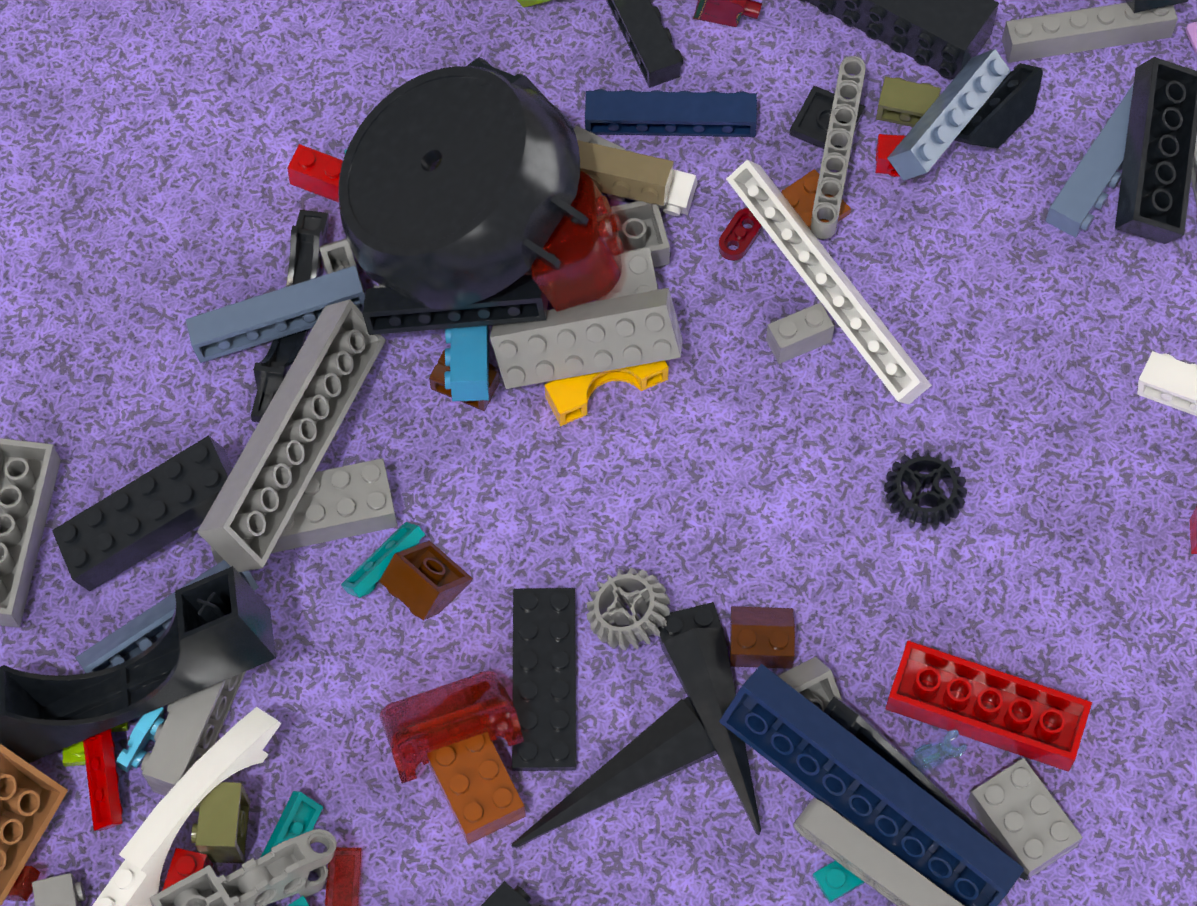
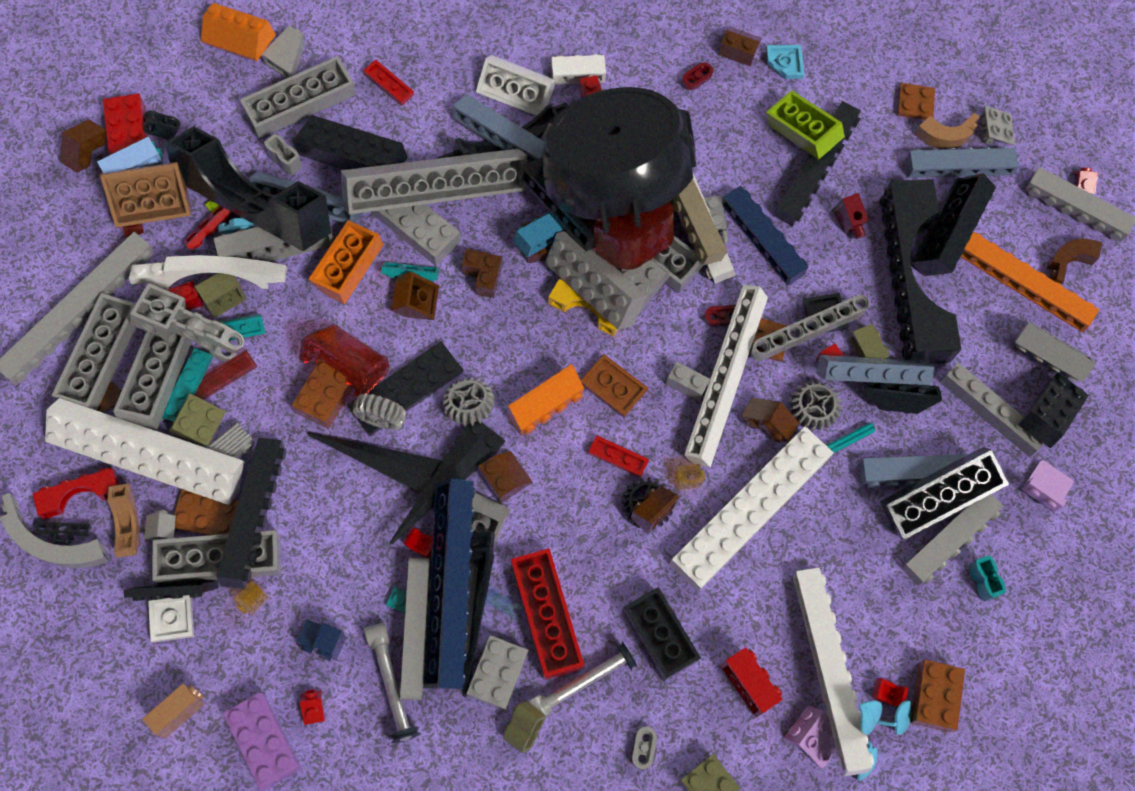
camera: 45 degrees right, 5 degrees up
(70, 609) = (283, 154): none -> light grey brick
(79, 405) = (388, 82): none -> red plate
(221, 254) = (515, 85): none -> white slope
(260, 165) = (573, 68): none -> white brick
(307, 630) = (346, 261): none -> orange slope
(389, 39) = (696, 76): none -> dark red plate
(457, 463) = (486, 268): none -> reddish brown brick
(566, 723) = (379, 412): none -> light grey gear
(701, 515) = (545, 400): none -> orange slope
(737, 422) = (614, 385): none -> dark orange plate
(780, 799) = (419, 543): none -> red bracket
(836, 482) = (618, 456): none -> red plate
(918, 270) = (771, 417): none -> reddish brown brick
(923, 429) = (682, 481): none -> clear yellow brick
(949, 478) = (654, 508): none -> reddish brown slope
(955, 207) = (821, 418): none -> light grey gear
(1008, 208) = (851, 437): none -> teal axle
(1021, 378) = (750, 509): none -> white brick
(1102, 796) = (545, 704): none -> flat silver piece
(1109, 588) = (661, 634): none -> black brick
(1119, 832) = (524, 726): none -> olive brick

